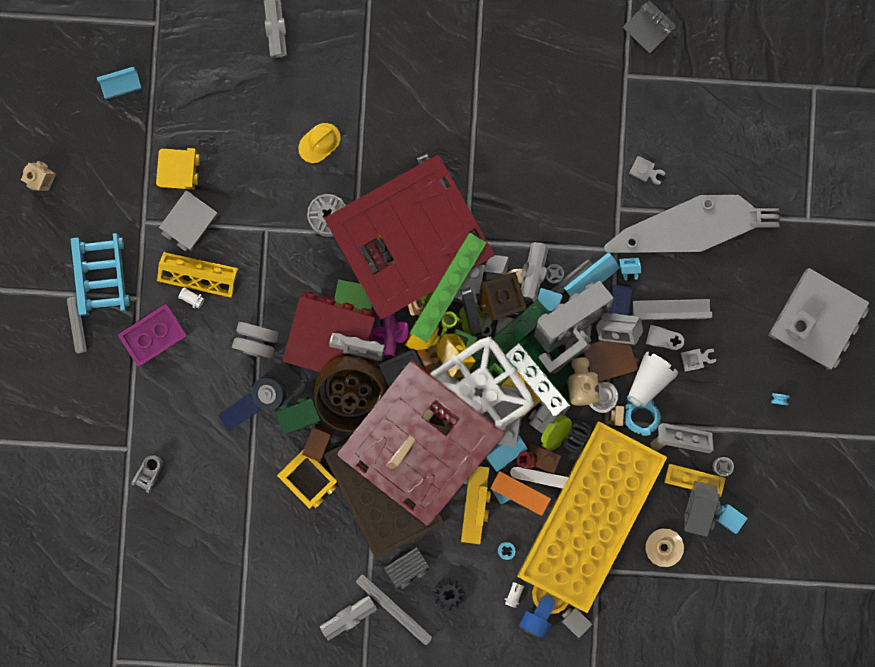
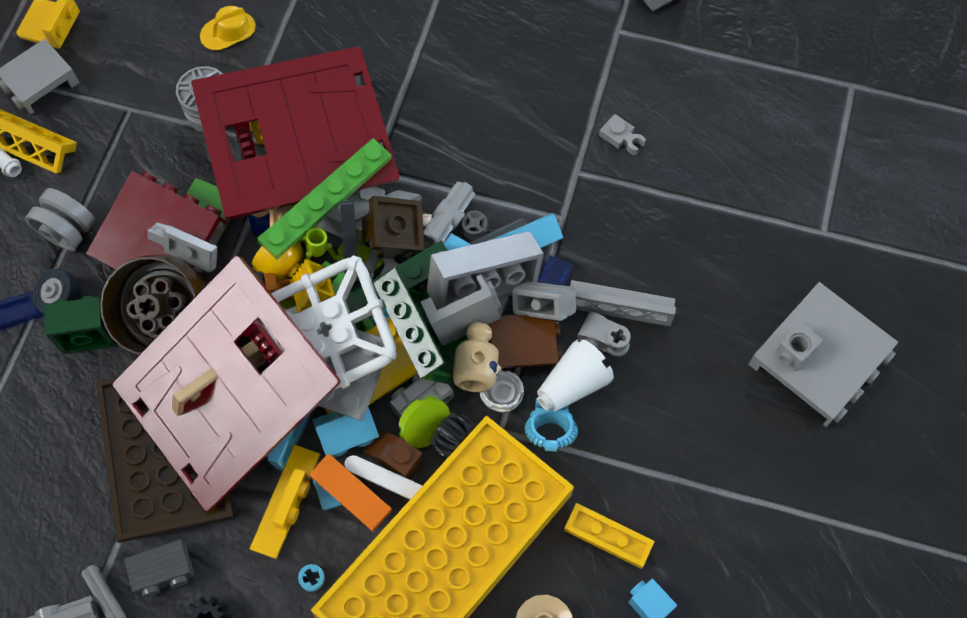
camera: 15 degrees right, 20 degrees down
(317, 442) = (93, 363): reddish brown slope -> none
(317, 500) = (53, 392): yellow window -> none
(390, 335) = (244, 246): magenta plant -> none
(531, 460) = (372, 449): dark red bush -> none
(617, 415) = (517, 420): tan plate -> none
(630, 266) = (576, 237): medium azure tile -> none
(683, 438) = (603, 468): light grey piece -> none
(694, 225) = (673, 207): light grey wing -> none
(694, 359) = (639, 371): light grey plate -> none
(701, 508) = (607, 578): dark grey brick -> none
(726, 466) = (657, 520): light grey wheel -> none
(780, 399) = (753, 448): medium azure bush -> none

